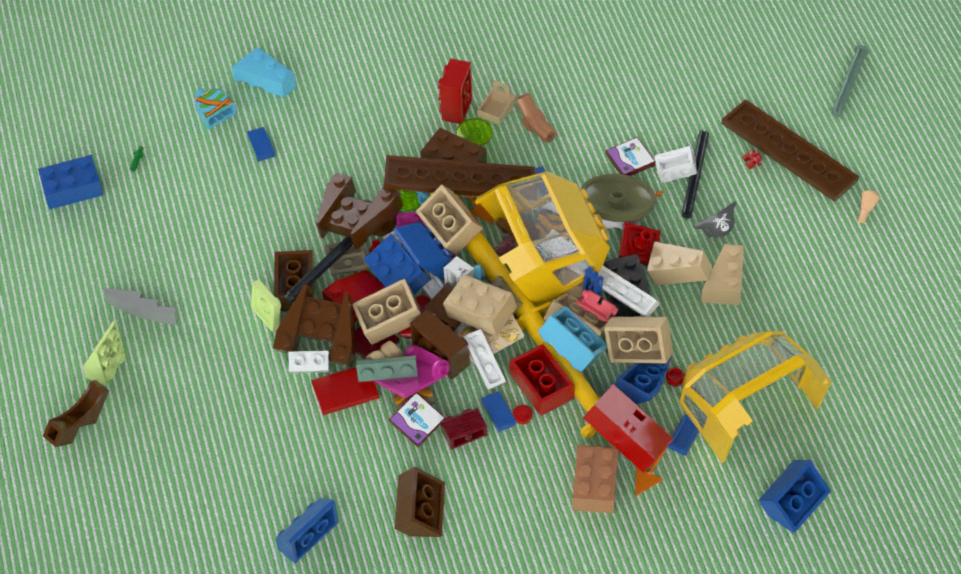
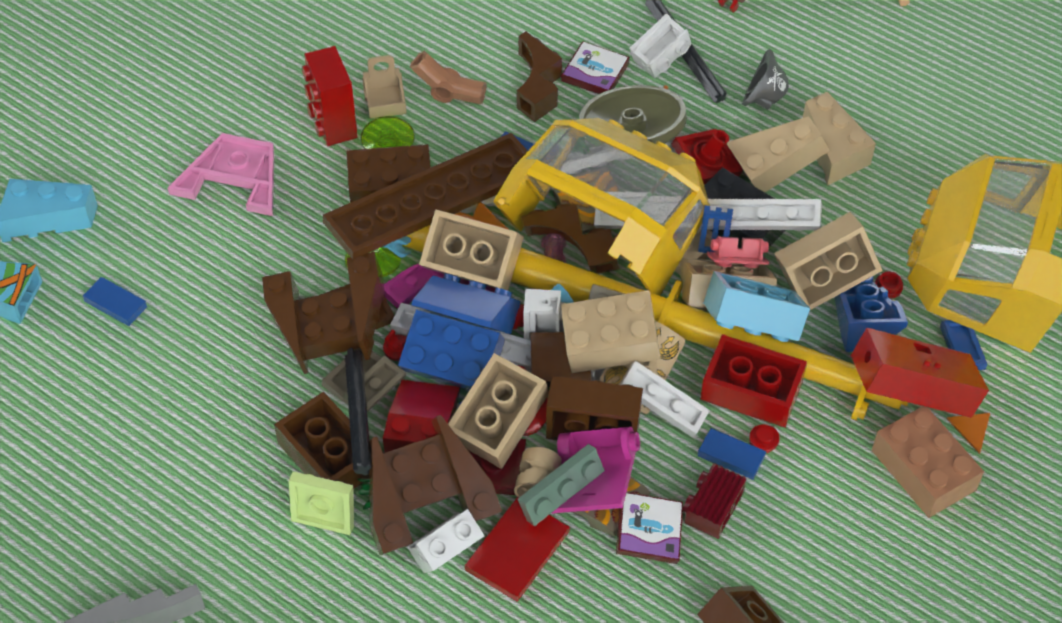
camera: 40 degrees left, 0 degrees up
(382, 102) = (236, 163): none -> bright pink wing
(581, 152) = (539, 92): none -> reddish brown arch

